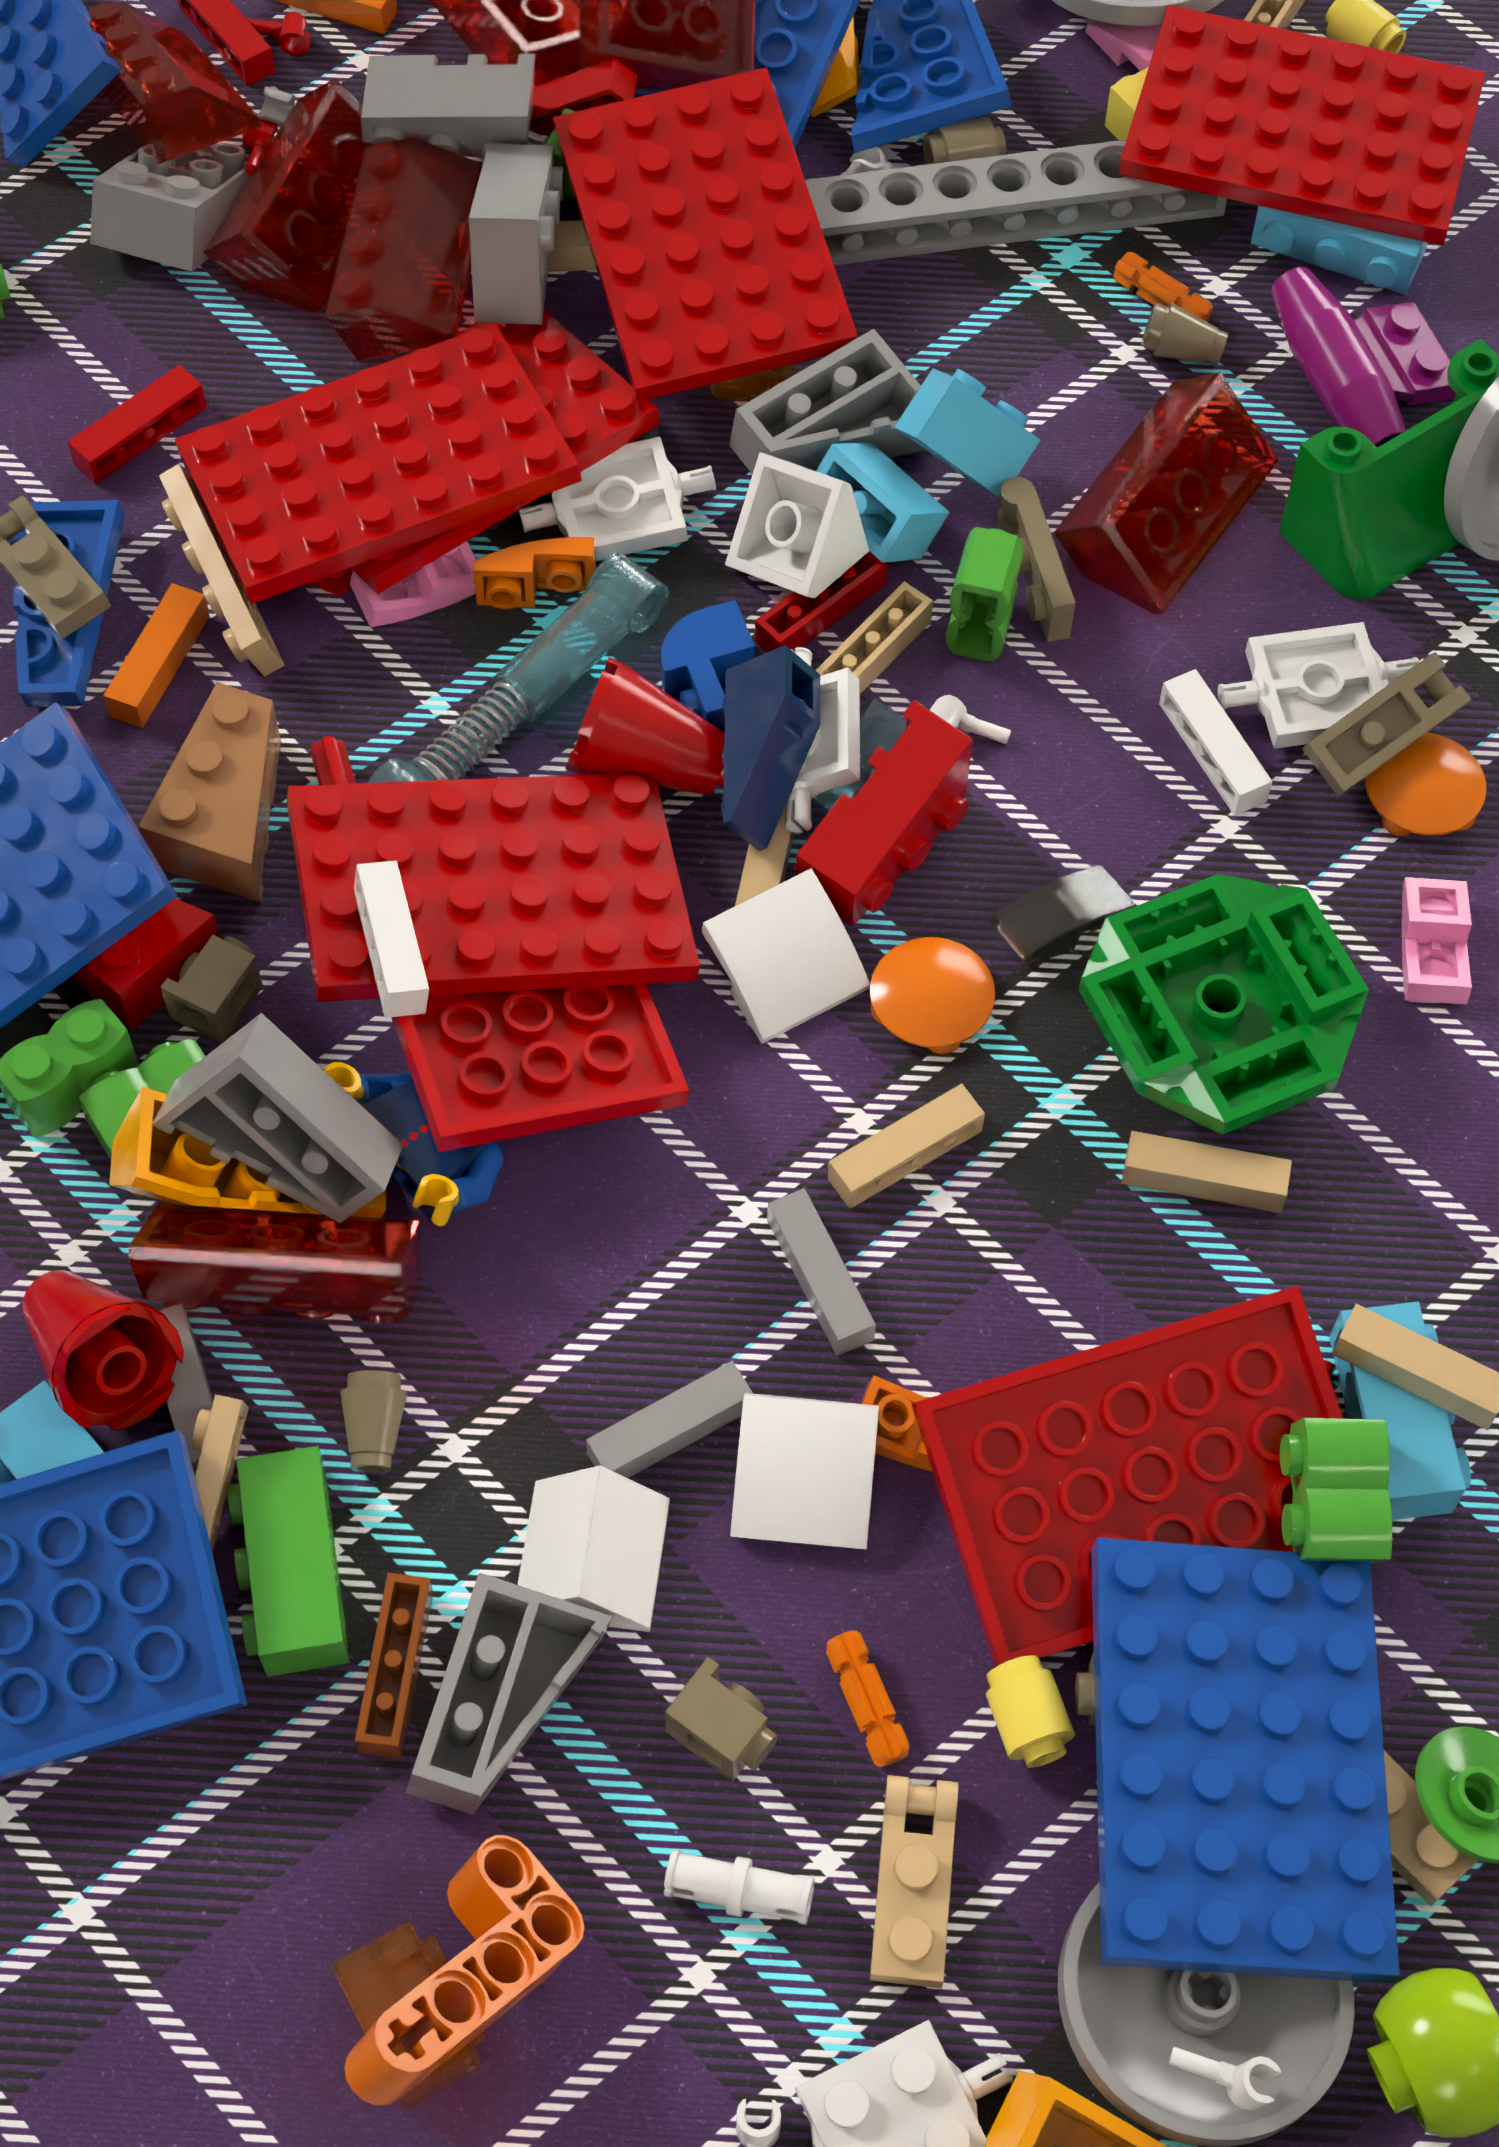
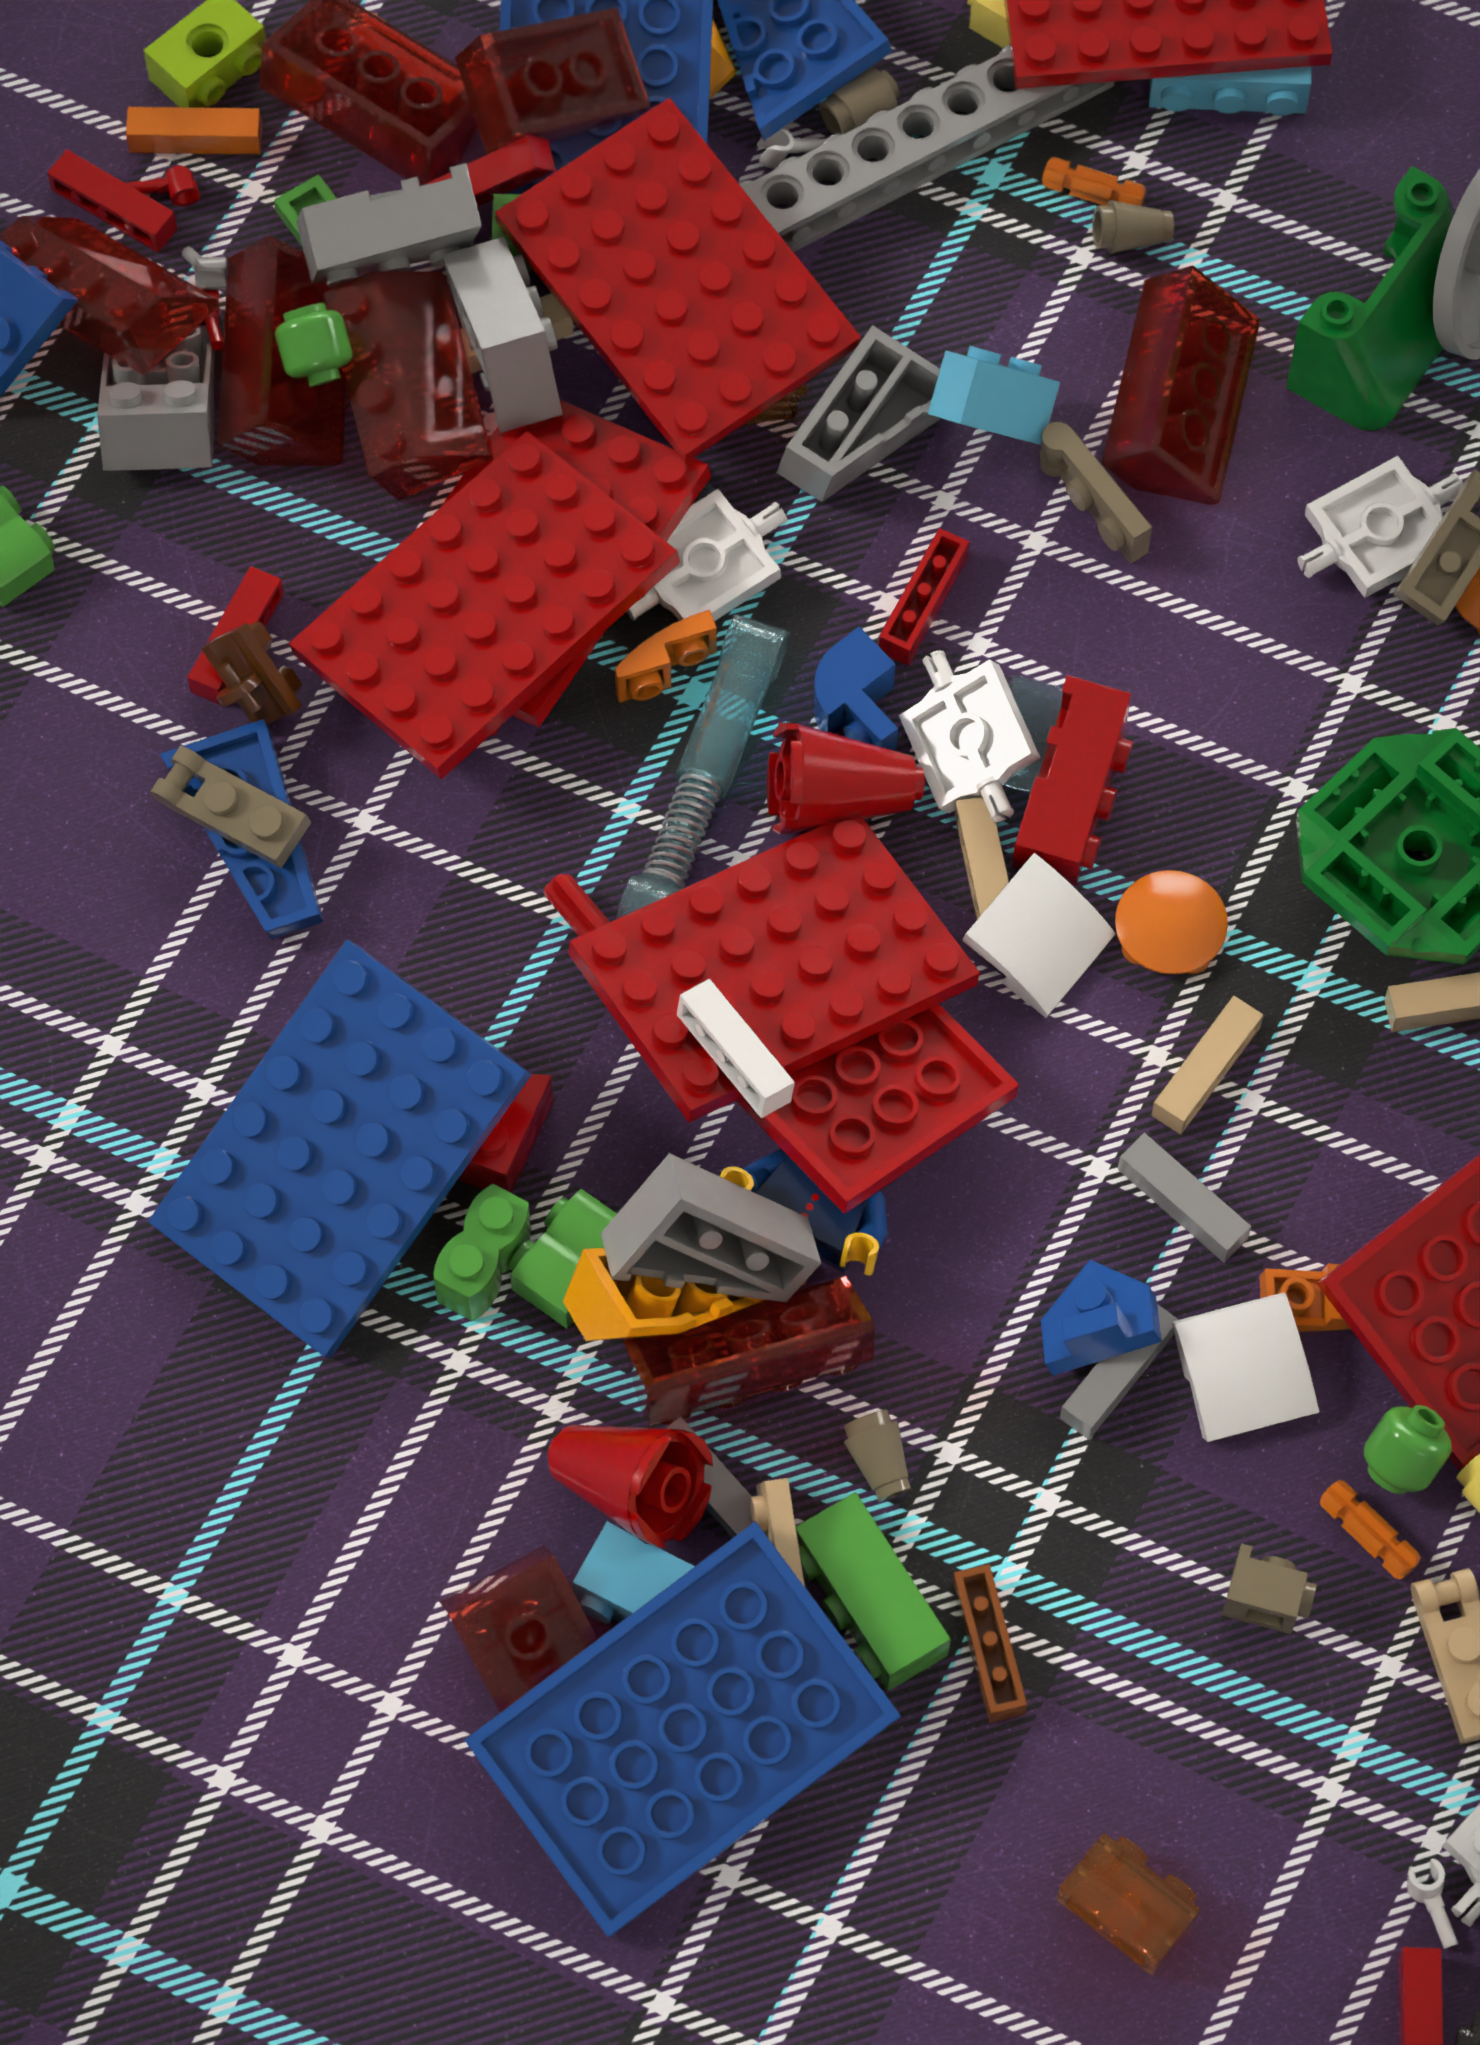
camera: 20 degrees left, 5 degrees up
(121, 456) = (251, 675): none -> reddish brown hips
(156, 655) = (365, 851): orange piece -> none
(214, 988) = (569, 1137): dark tan brick -> none
(219, 795) = (493, 963): medium nougat wedge -> none
(247, 632) = (399, 768): tan plate -> none
(327, 181) = (313, 344): none -> bright green head
(426, 590) = (583, 696): bright pink slope -> none
(500, 1683) = (1084, 1629): light grey wedge -> none
(521, 1935) = (1194, 1812): orange beam -> none
(596, 1544) = (1101, 1494): white slope -> none
(667, 1363) = (1098, 1319): none -> blue plate
(739, 1886) = (1336, 1711): white pin -> none
(768, 732) = (948, 742): dark blue slope -> none
(797, 528) = (880, 540): white slope -> none
(882, 636) = (989, 614): tan piece -> none
(893, 508) = (936, 487): medium azure brick -> none
(941, 1623) = (1407, 1449): none -> bright green head
(955, 713) = (1081, 664): white hand -> none
(984, 594) = (1071, 545): bright green brick -> none
(1056, 914) = (1251, 812): clear smoke slope -> none
(1215, 742) = (1314, 610): white piece -> none
(1364, 362) = (1299, 199): magenta plate -> none

